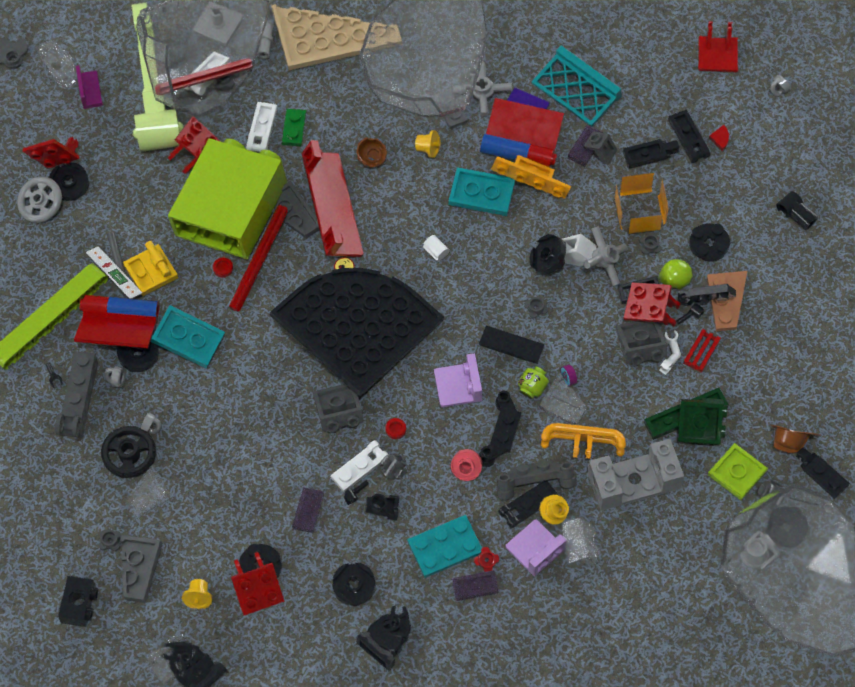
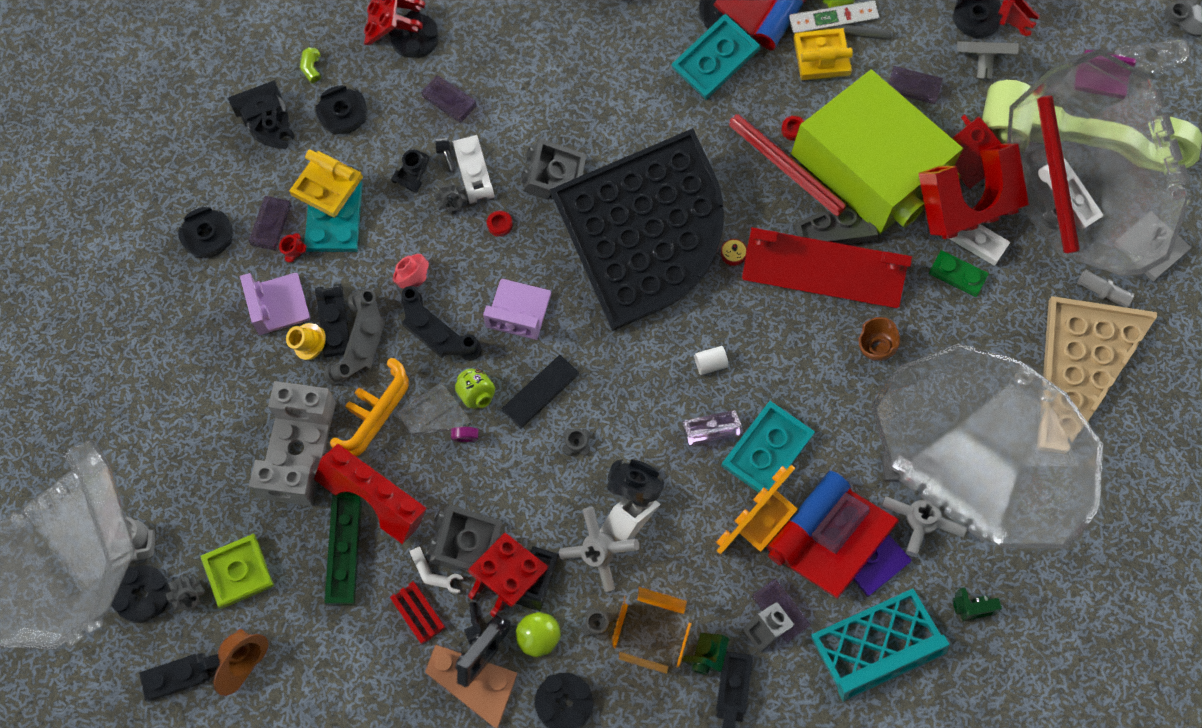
camera: 115 degrees right, 5 degrees up
(104, 160) = (986, 54): none -> light grey tile
(151, 201) = (915, 84): none -> clear purple plate
(252, 129) = (1003, 192): none -> red arch
(323, 632) = (308, 58): none -> lime arm
(428, 143) = (861, 415): yellow piece -> none
(428, 551) = (325, 183): none -> yellow plate
(485, 228) = (712, 428): none -> clear purple plate
(505, 616) = (208, 246): none -> black plate
(514, 128) = (840, 523): none -> clear purple plate
(527, 44) = (979, 608): none -> dark green bracket
(580, 541) = (250, 349): clear bracket -> none
(635, 168) = (708, 654): none -> dark green bracket
(639, 427) = (396, 510): none -> red arch
(702, 421) = (311, 553): dark green plate -> none

